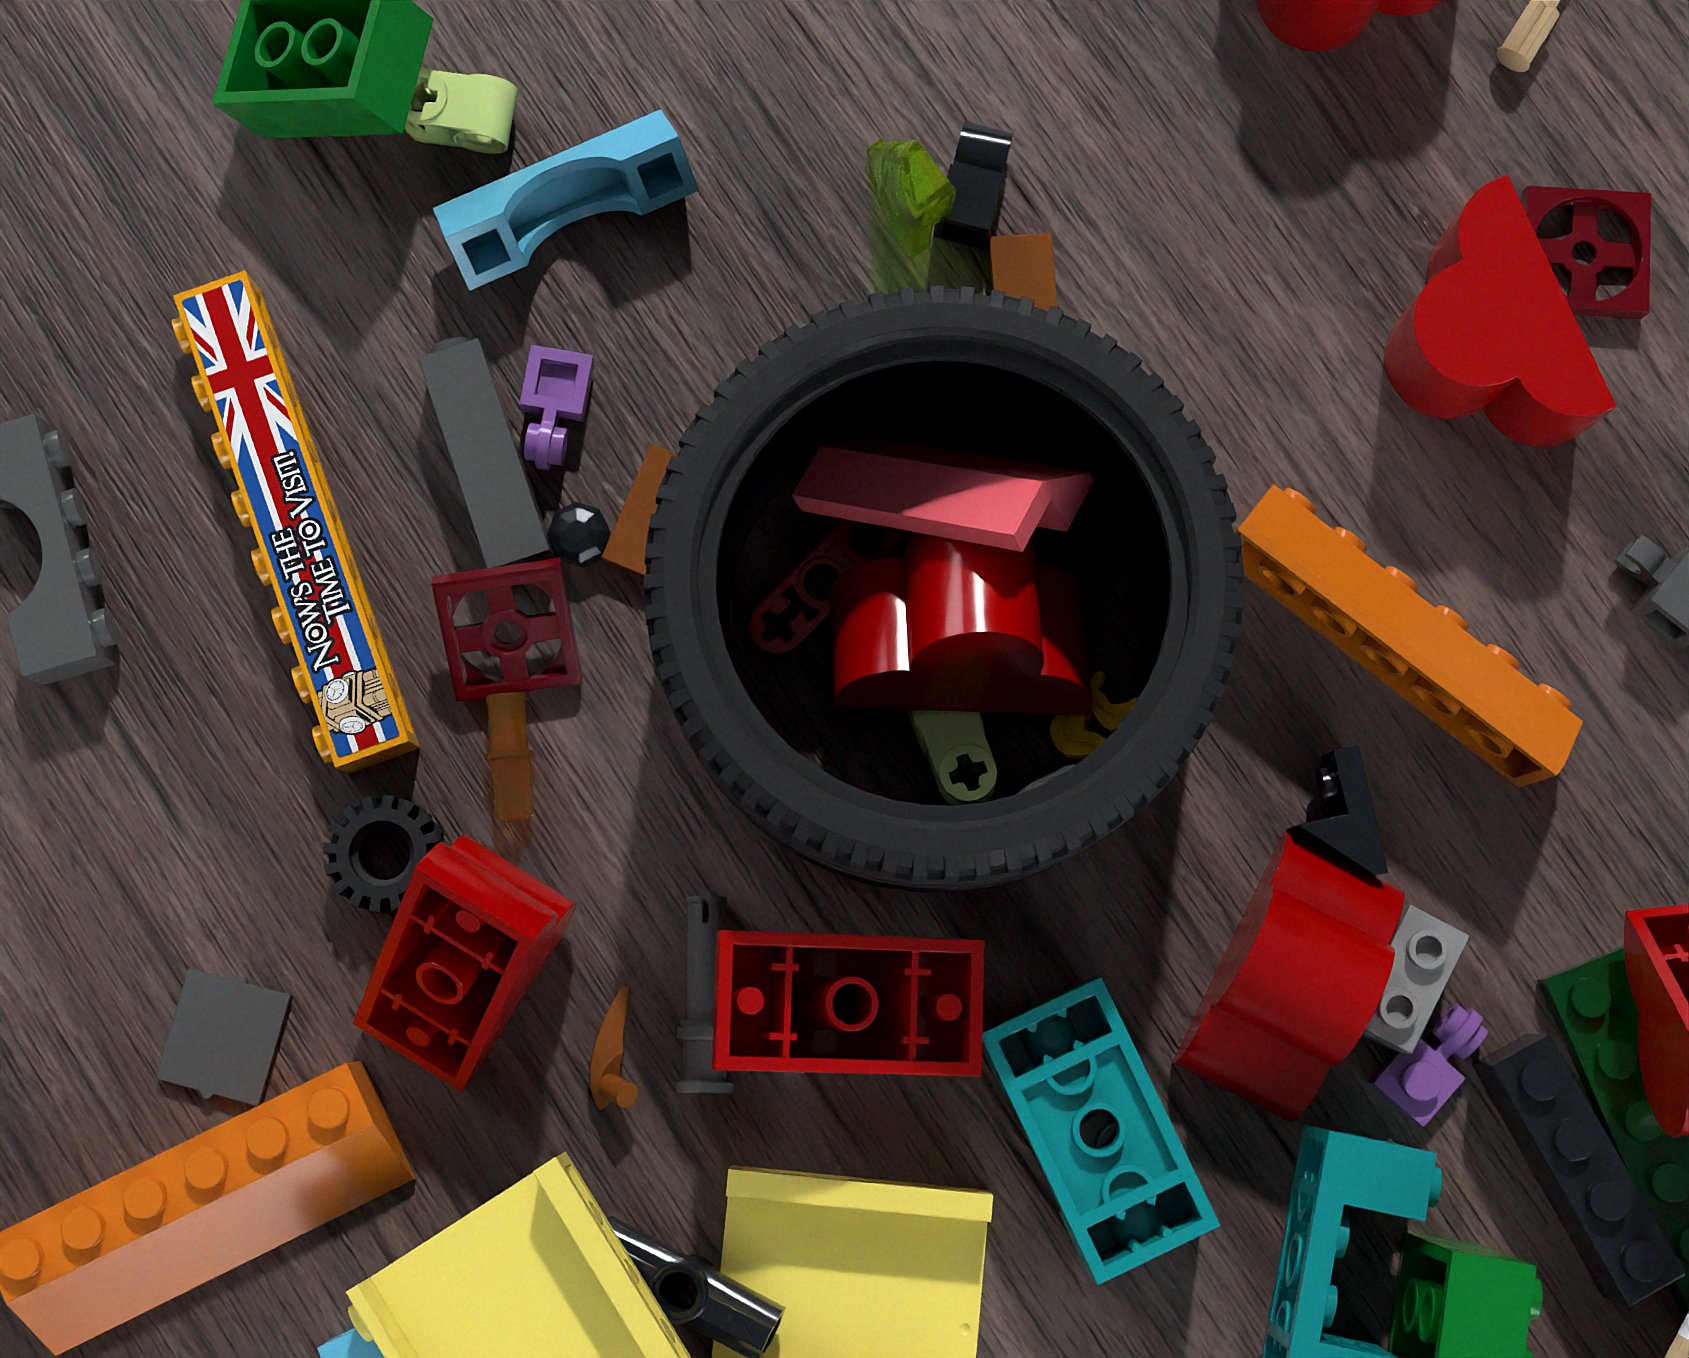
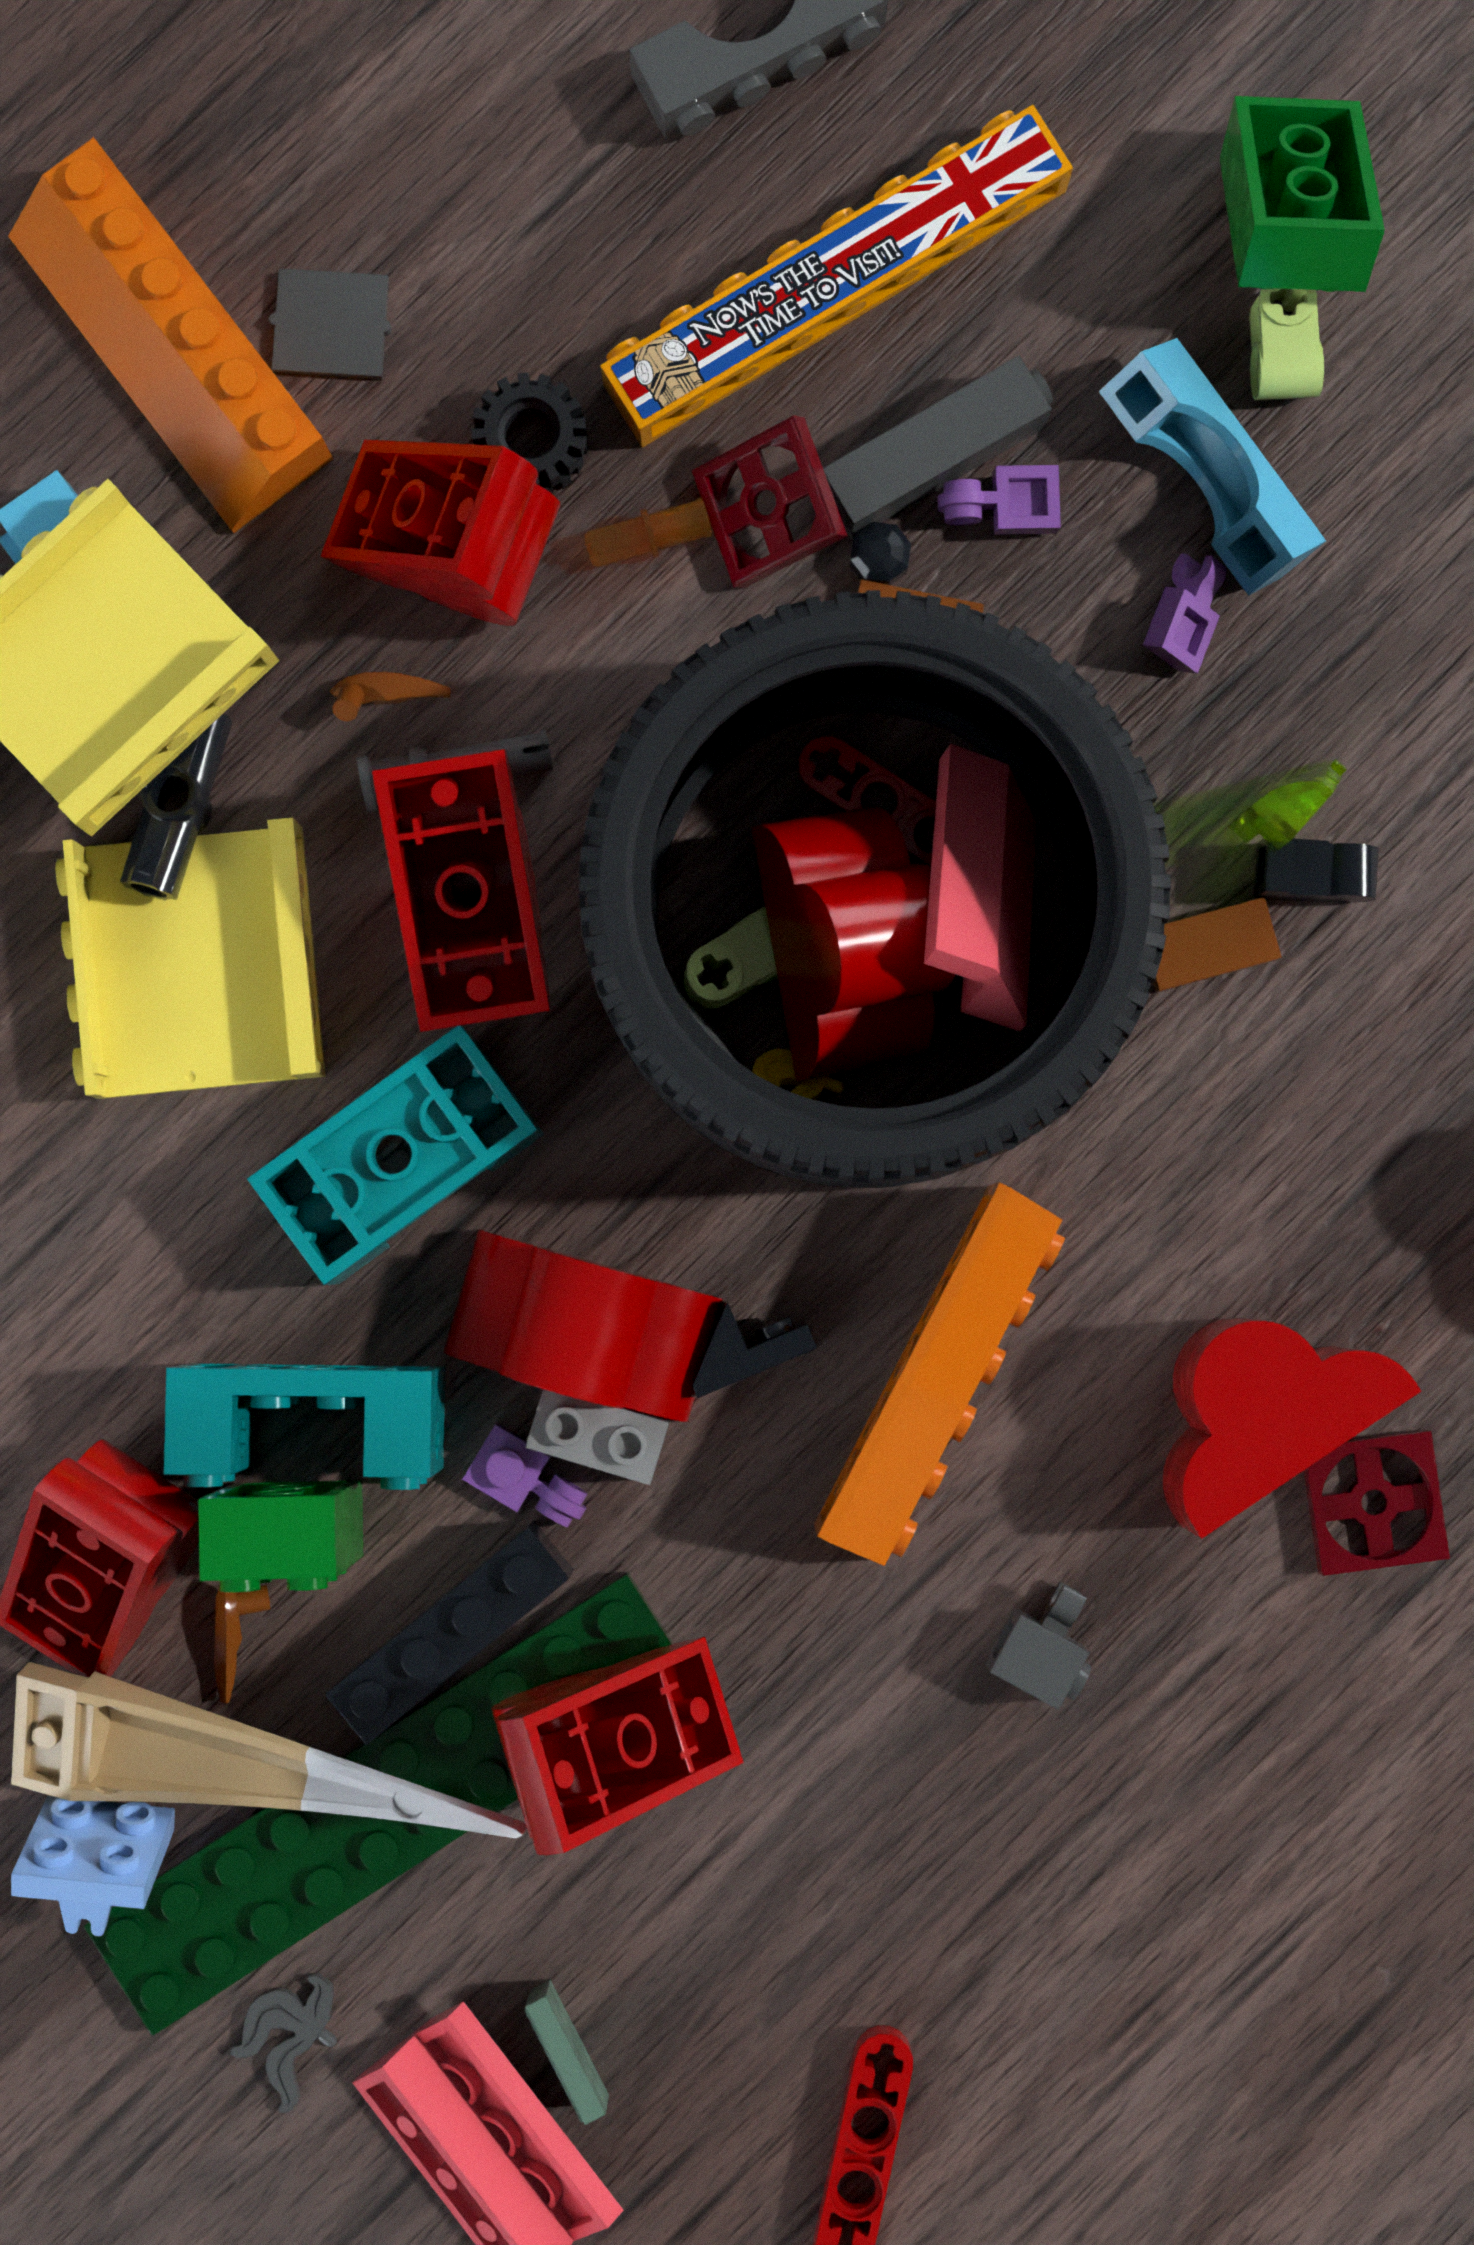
camera: 80 degrees right, 5 degrees up
(705, 256) = (1184, 616): none -> medium lavender plate

